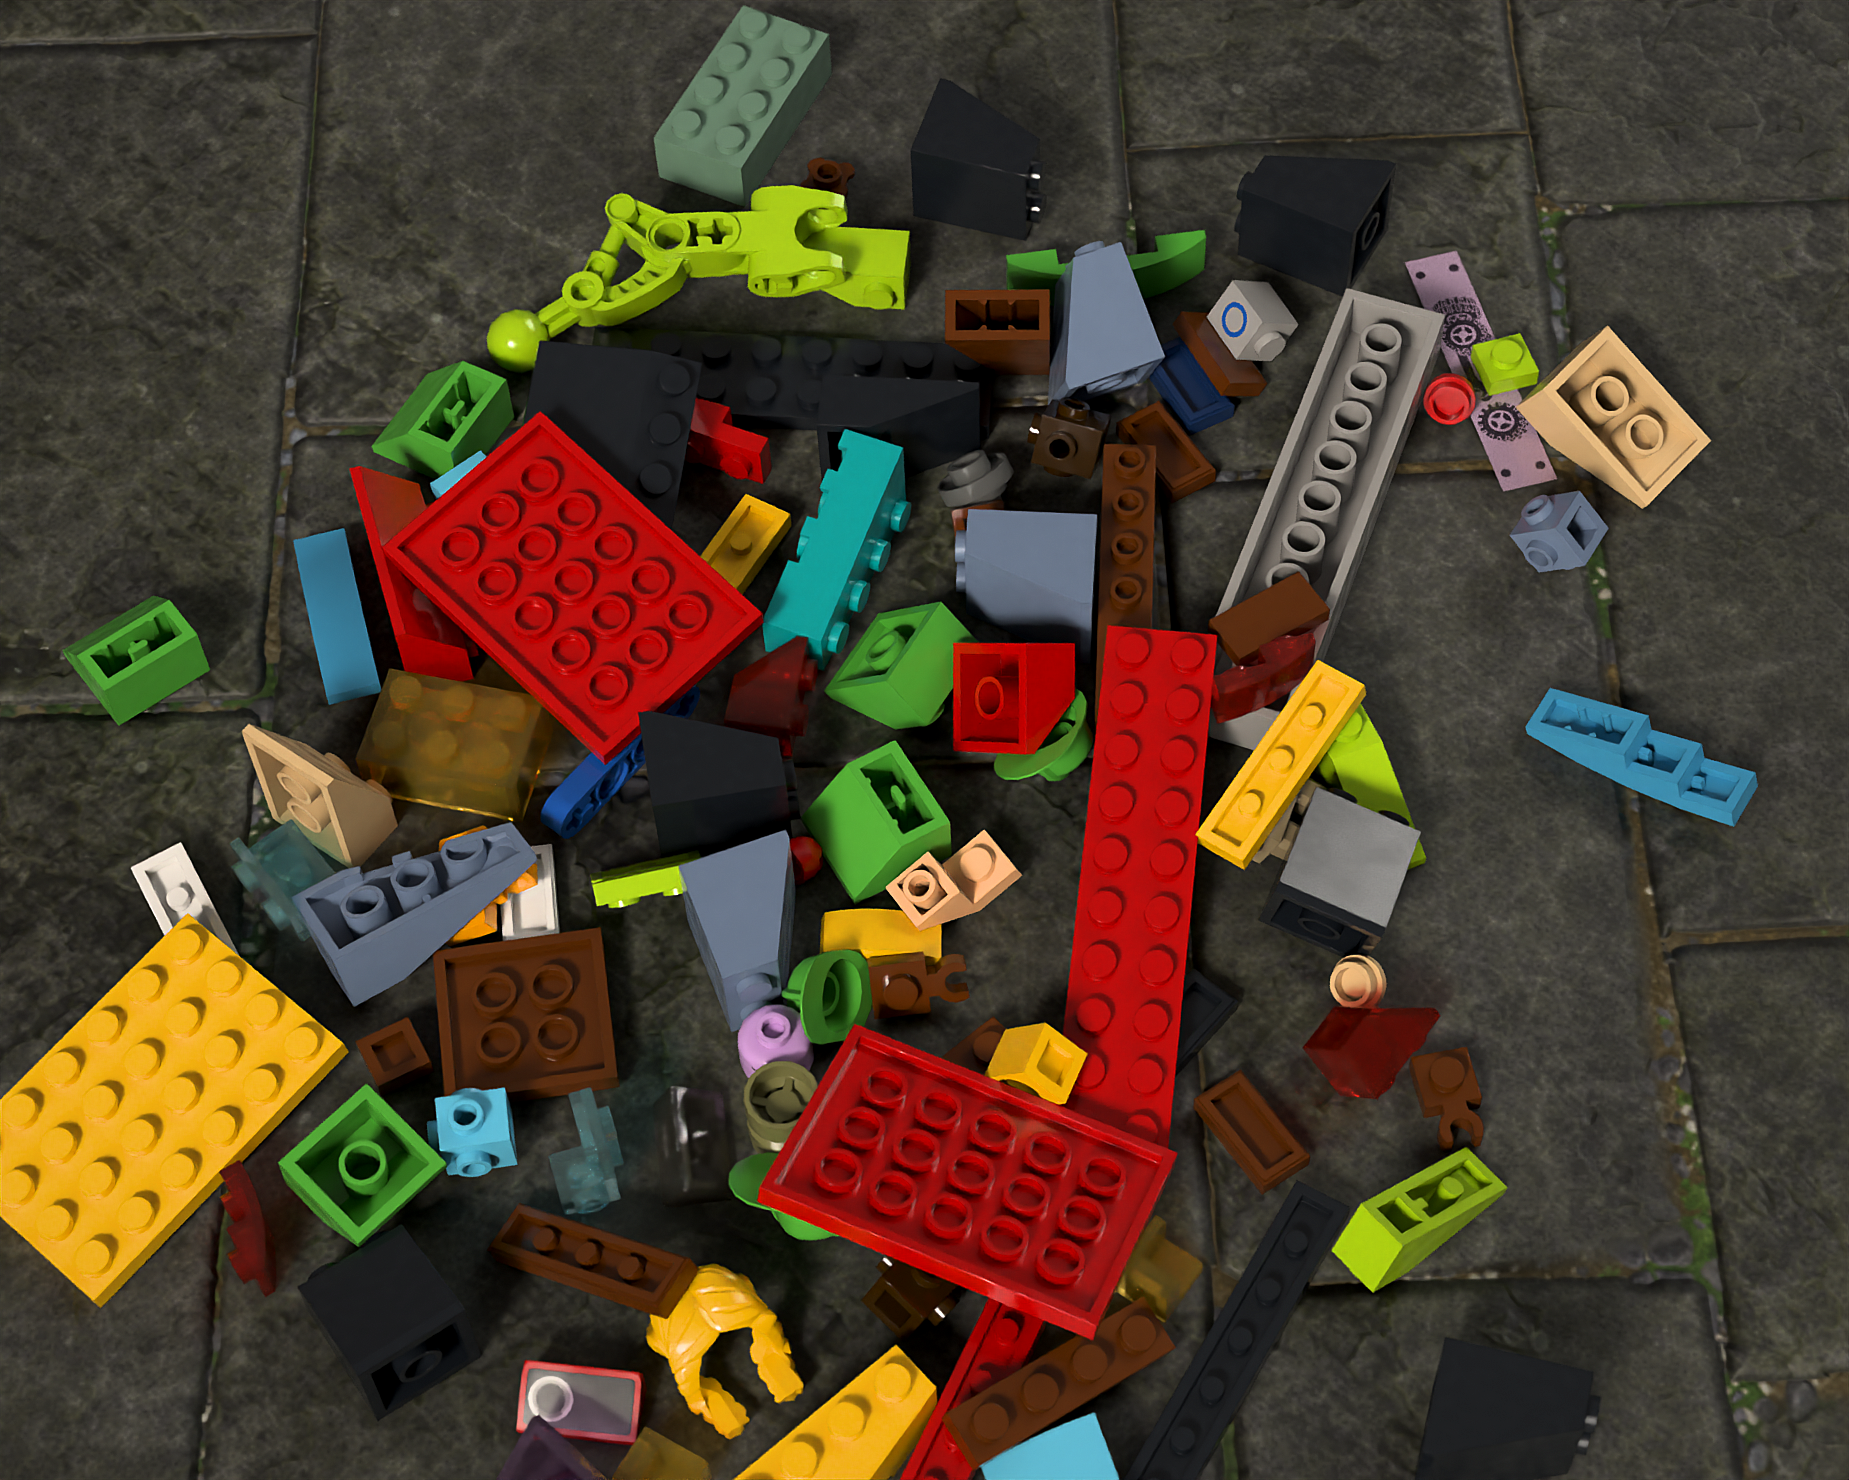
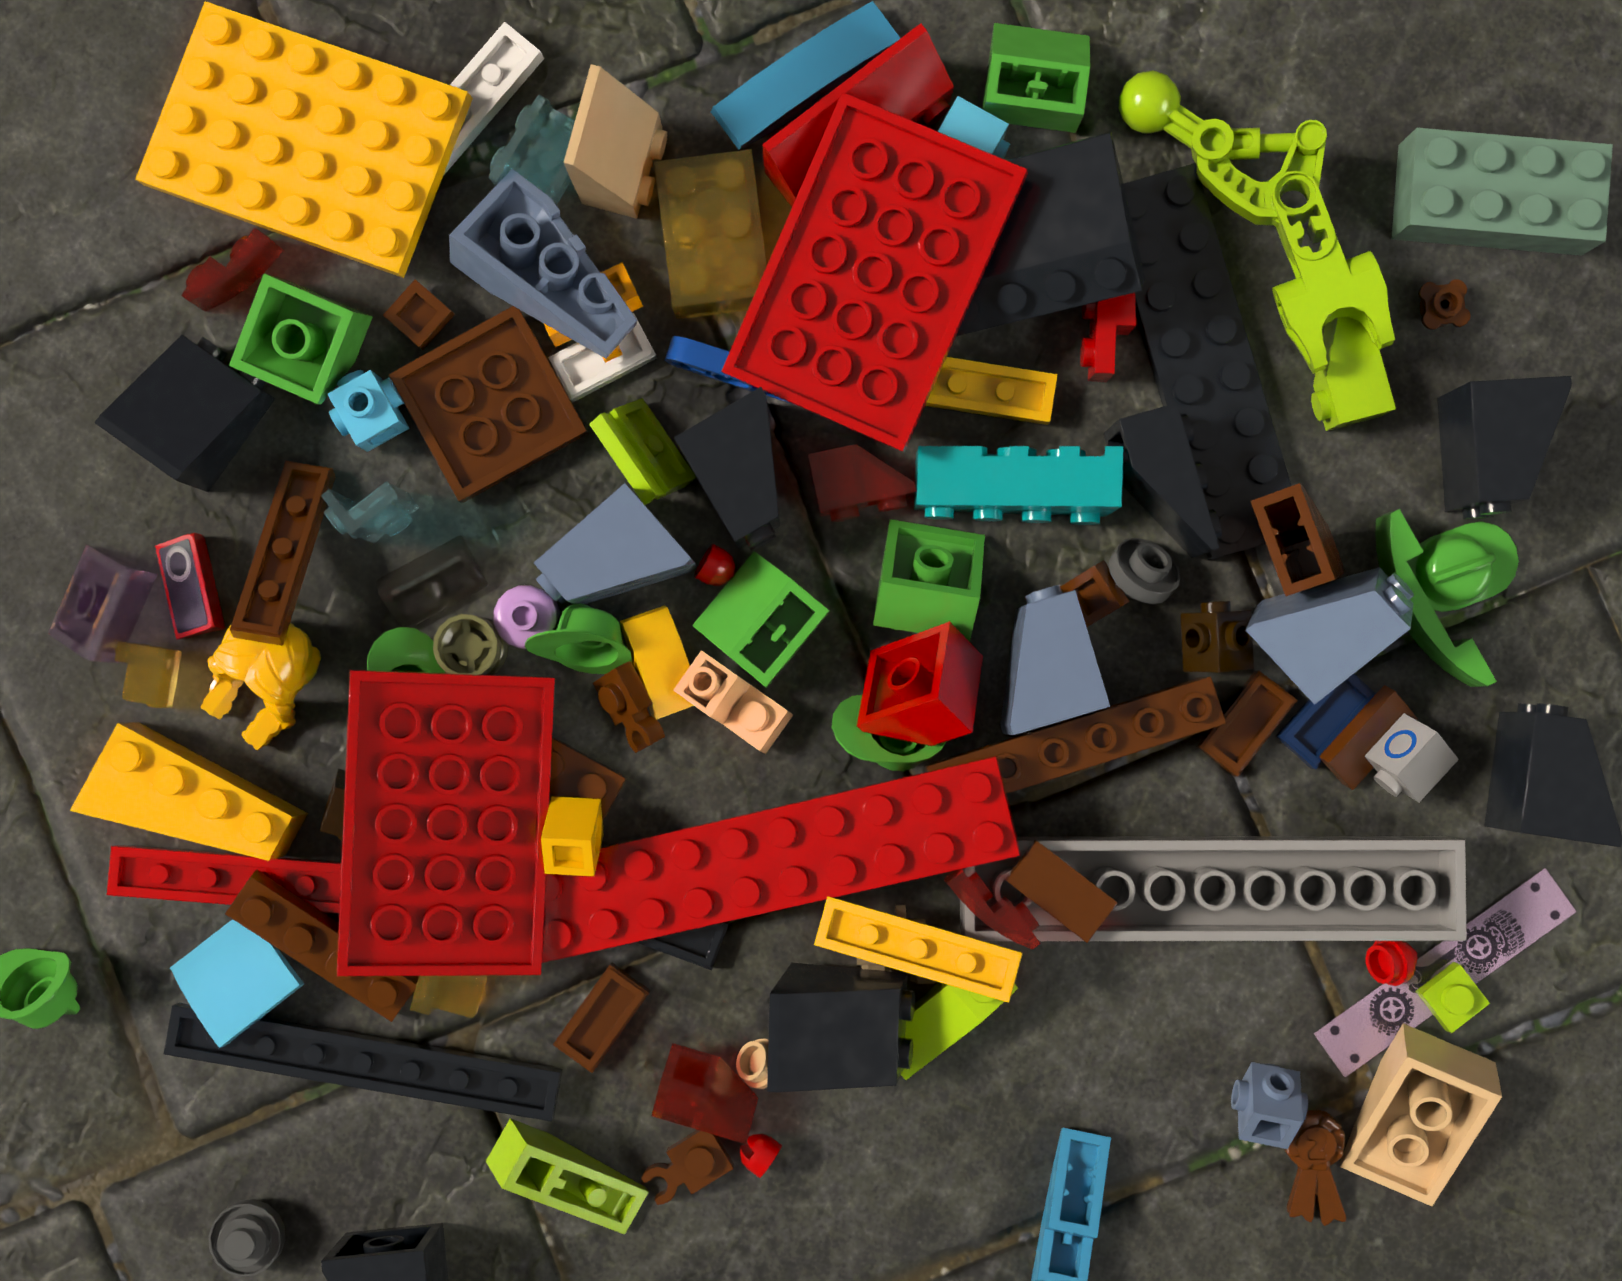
camera: 65 degrees right, 30 degrees up
(1081, 223) = (1465, 565): none -> bright green piece
(1461, 1014) = (759, 1153): none -> red hinge
(1662, 532) = (1314, 1150): none -> reddish brown piece

